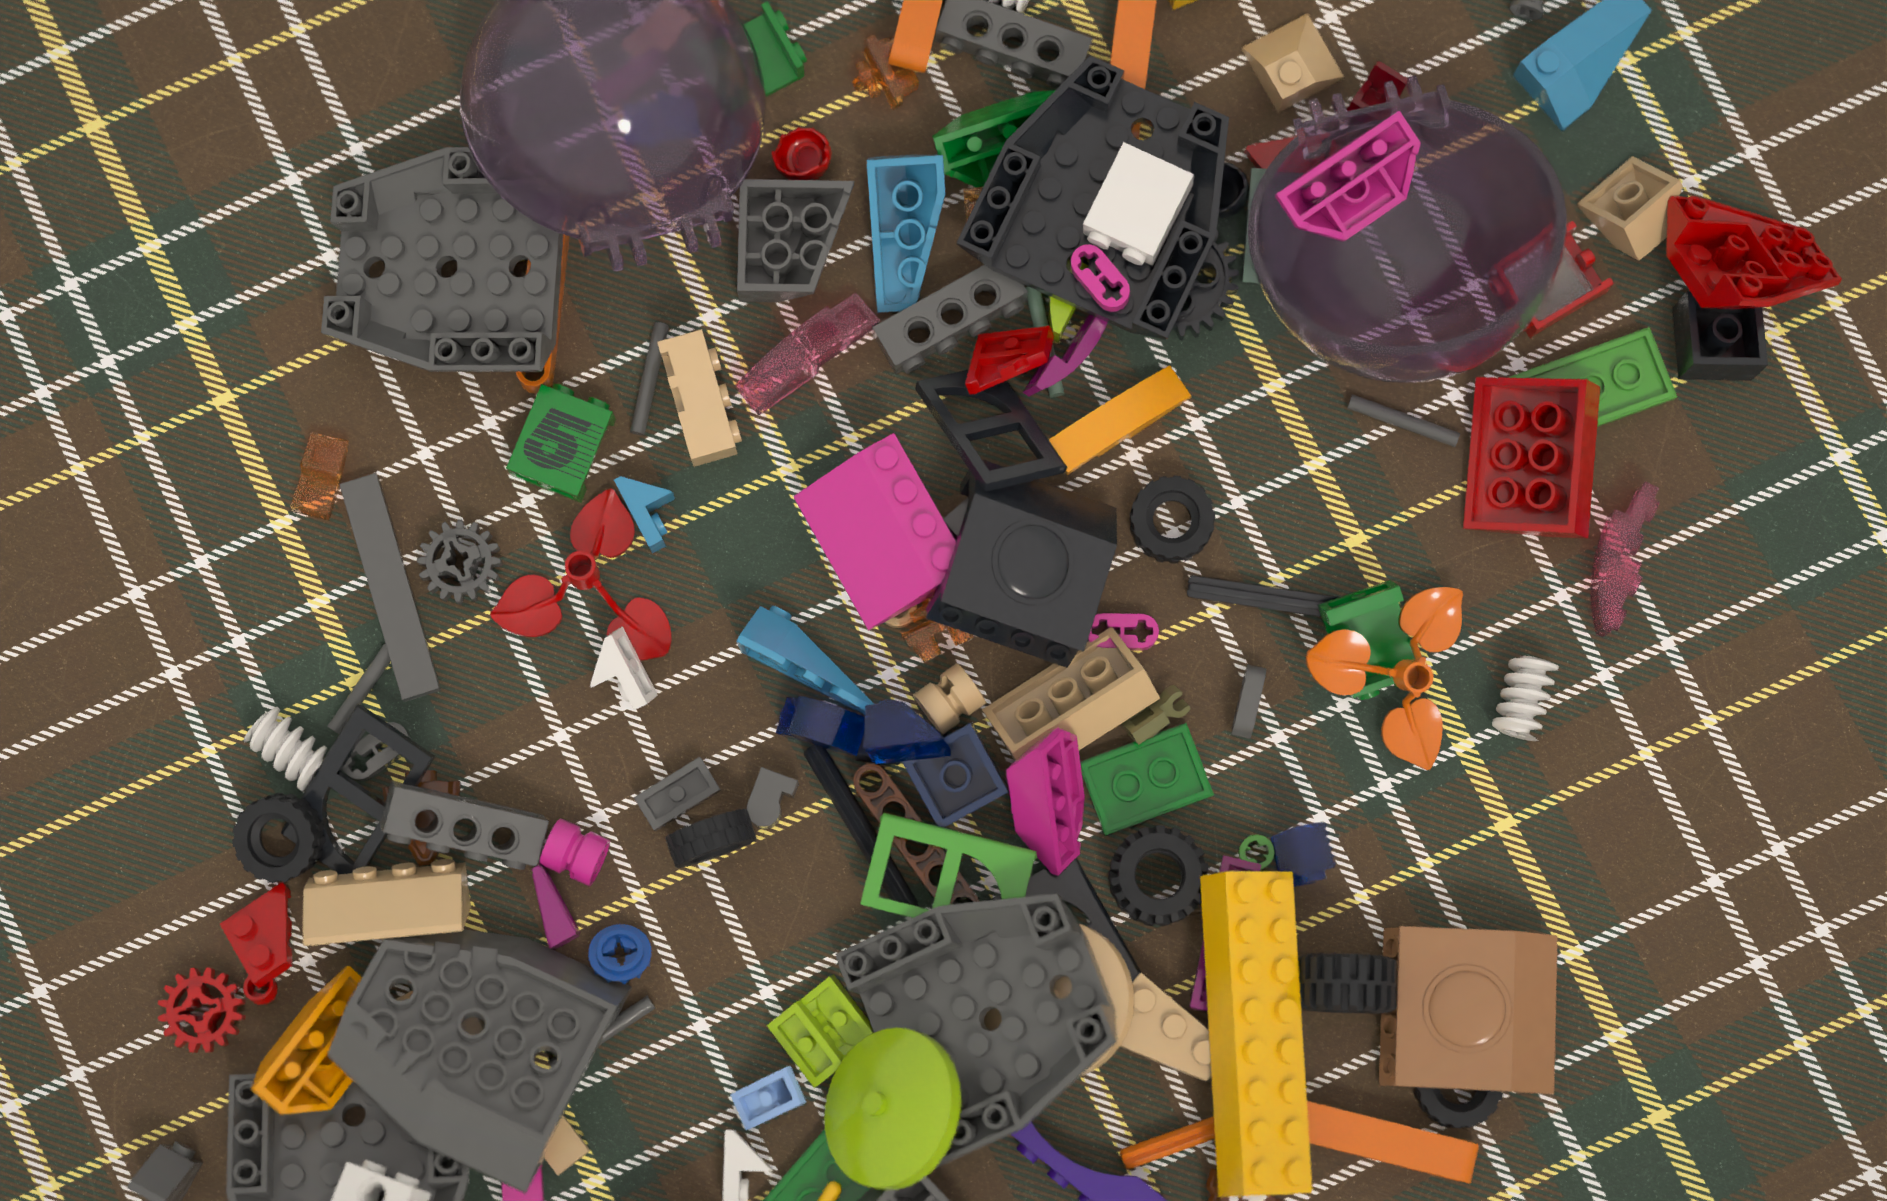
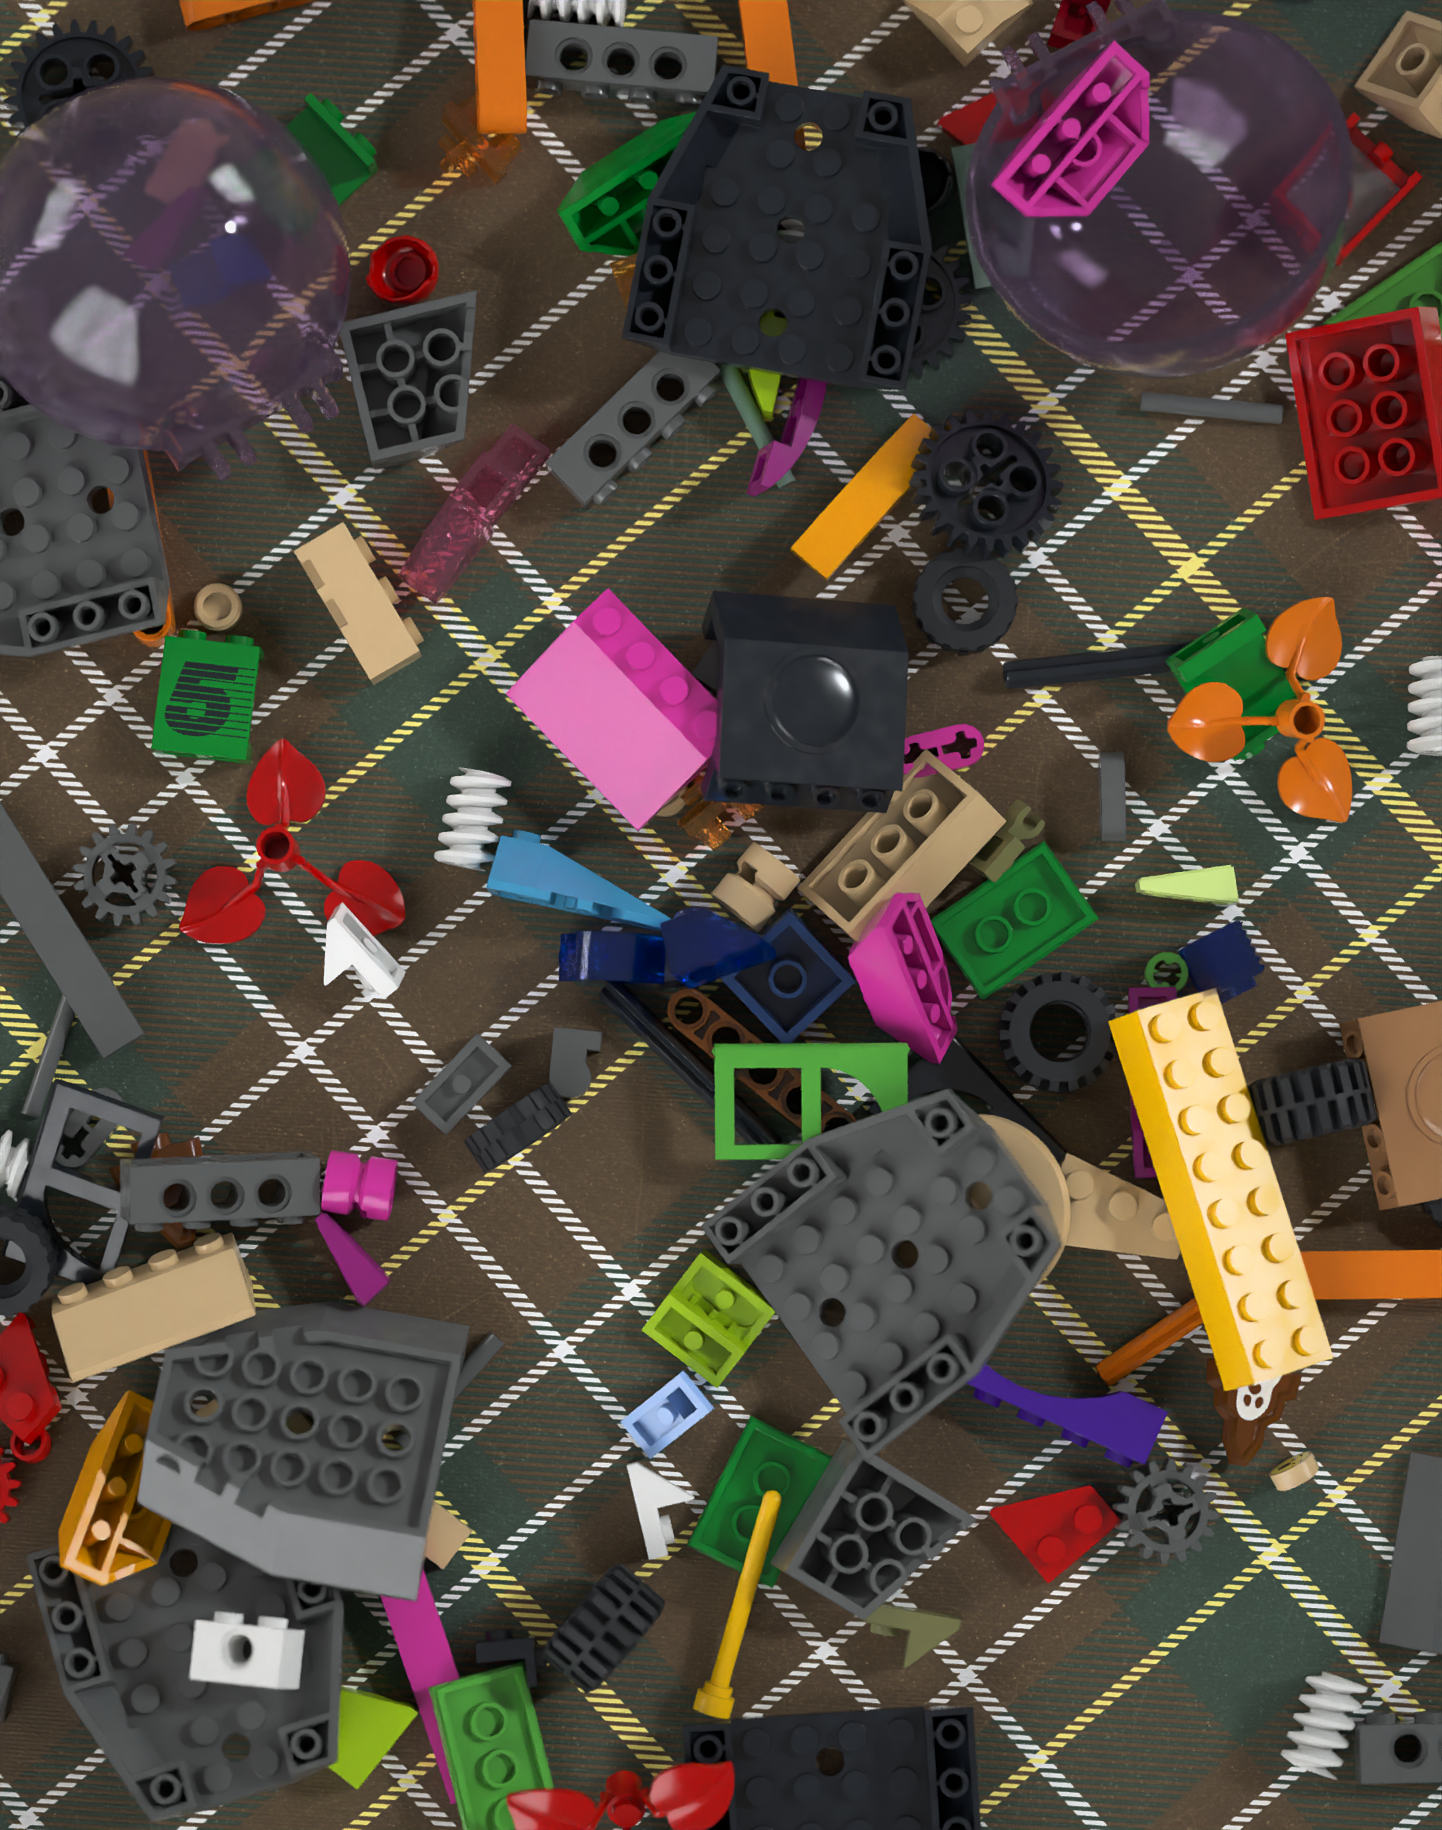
camera: 15 degrees left, 5 degrees up
(589, 375) = (218, 607): none -> tan tile
(604, 946) = (456, 1273): blue gear -> none
(642, 500) = (321, 744): dark azure slope -> none
(648, 380) = (291, 593): dark grey bar -> none
(740, 588) = (472, 819): none -> white piece
(892, 1108) = (817, 1389): lime dish -> none
(904, 214) = (547, 312): dark azure wedge -> none
(1007, 355) = (716, 454): red wing -> none
(1014, 418) = (706, 496): black window -> none
(1093, 283) = (812, 325): dark pink beam -> none
(1137, 205) = (827, 235): white brick -> none
(1193, 403) = (1017, 513): none -> black gear
(1304, 790) = (1205, 885): none -> yellowish green slope

